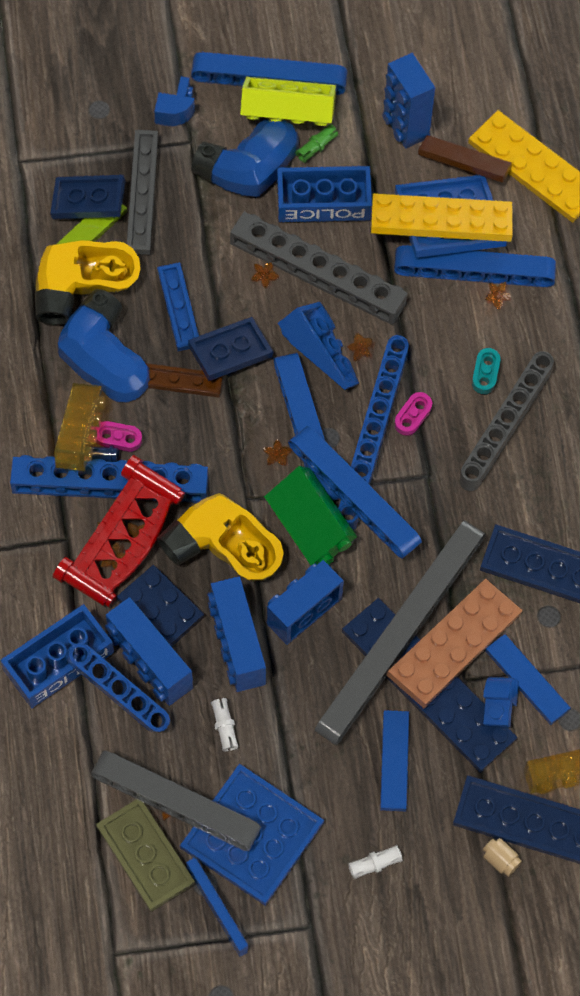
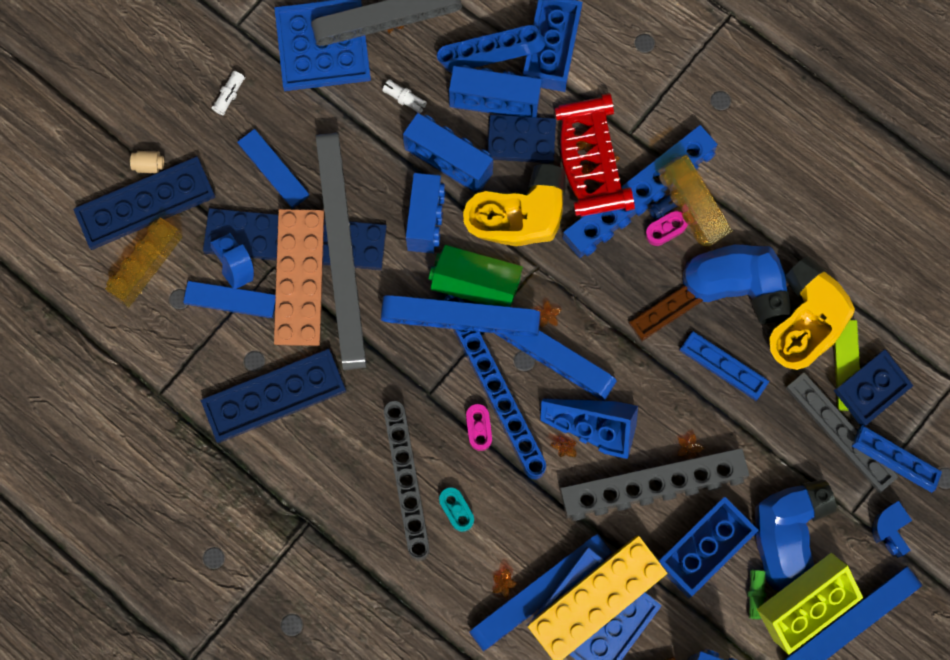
camera: 140 degrees right, 10 degrees up
(123, 141) = (897, 459): none -> blue tile
(230, 348) = (653, 360): dark blue plate -> none

